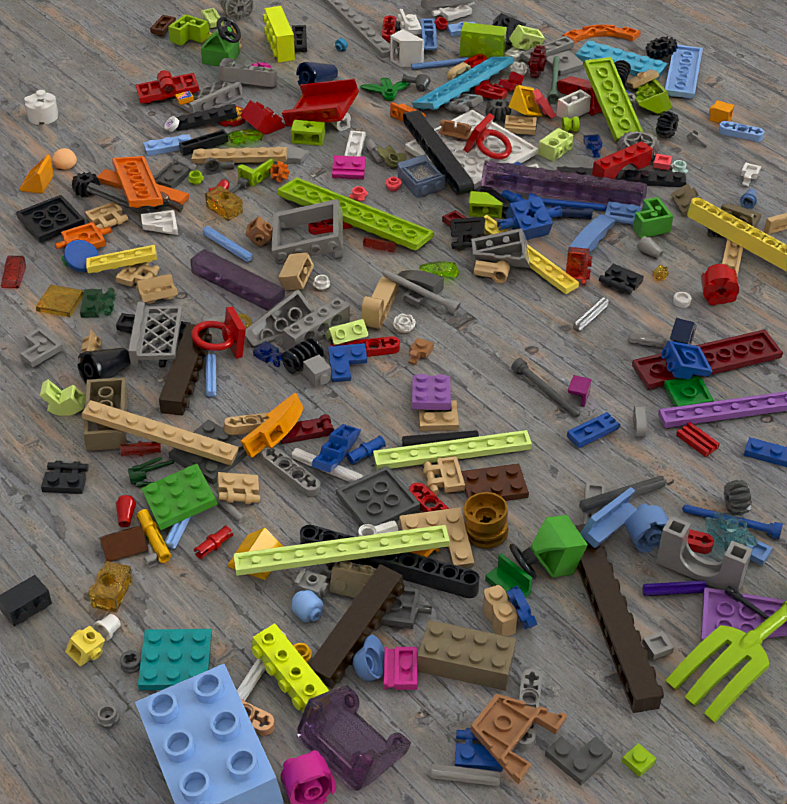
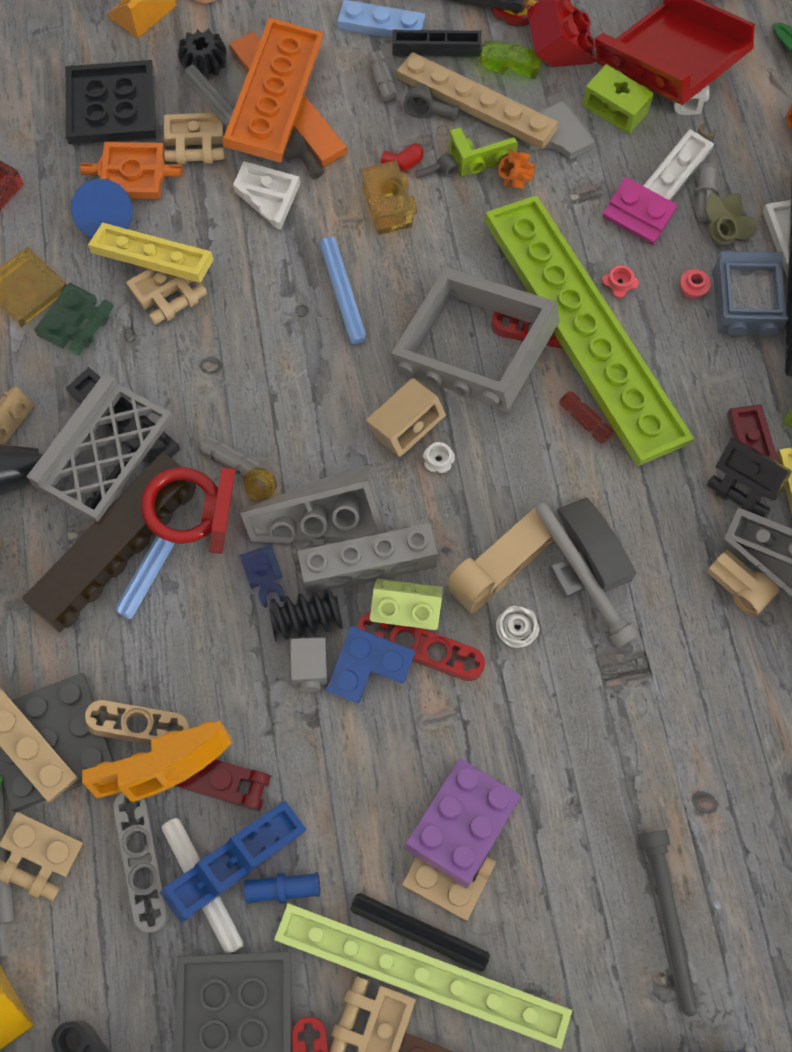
camera: 30 degrees right, 25 degrees up
(156, 288) = (172, 341): tan bracket -> none
(171, 175) = (345, 93): dark grey plate -> none
(195, 177) = (379, 115): lime plate -> none
(236, 279) = (307, 386): clear purple brick -> none
(259, 231) = (400, 295): medium nougat brick -> none
(420, 349) = (510, 699): medium nougat plate -> none
(440, 268) = (649, 531): clear neon green slope -> none
(580, 386) = (725, 965): magenta panel -> none

